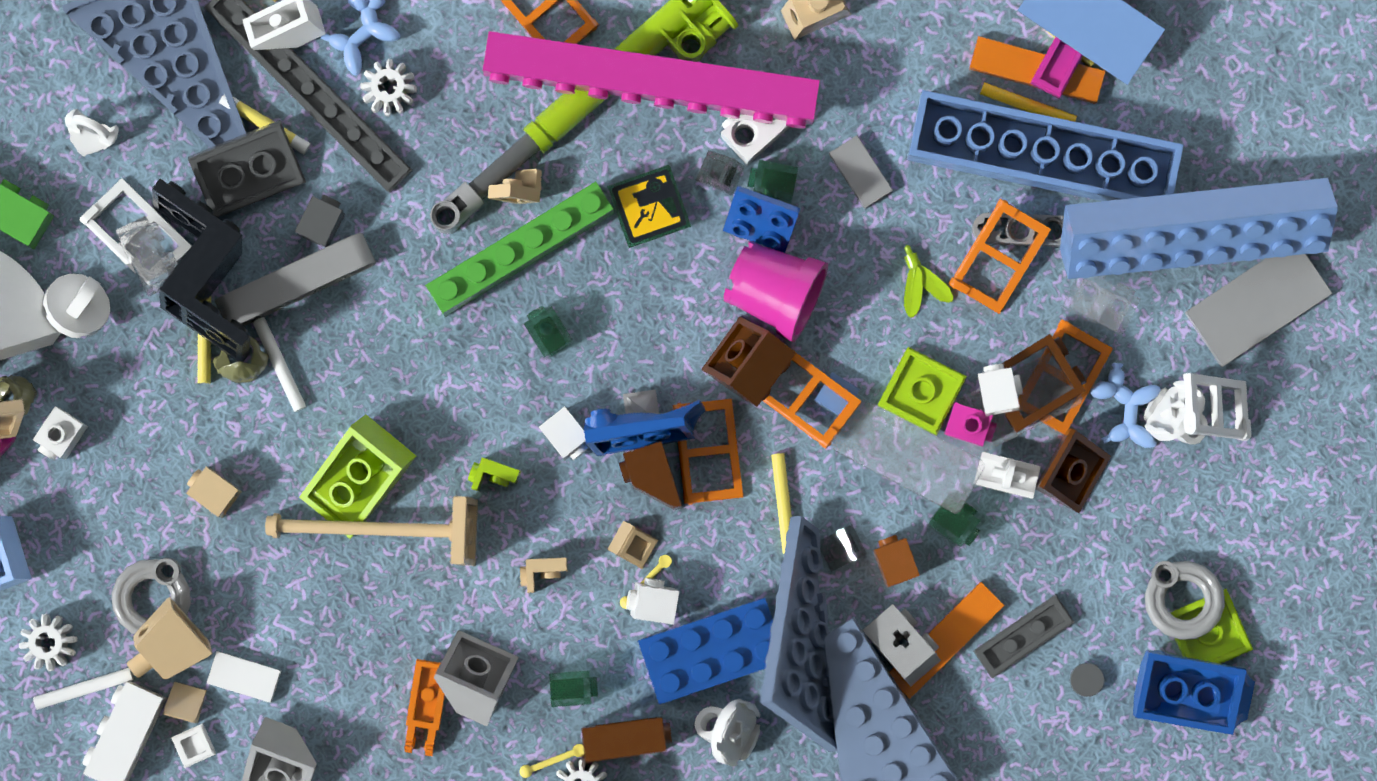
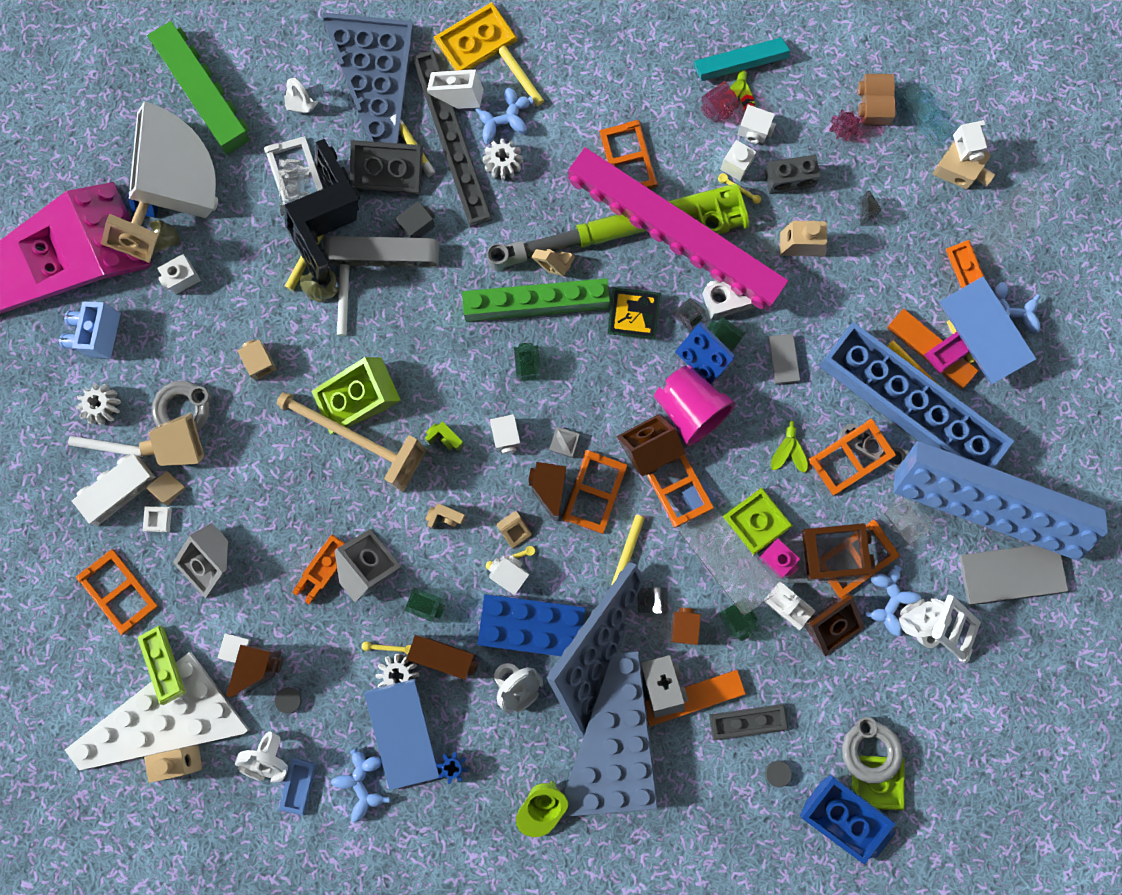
camera: 25 degrees right, 5 degrees down
(76, 305) = (232, 198): white tile -> none
(244, 676) = (213, 490): white tile -> none
(615, 433) = (537, 447): blue slope -> none
(999, 389) = (813, 543): white brick -> none

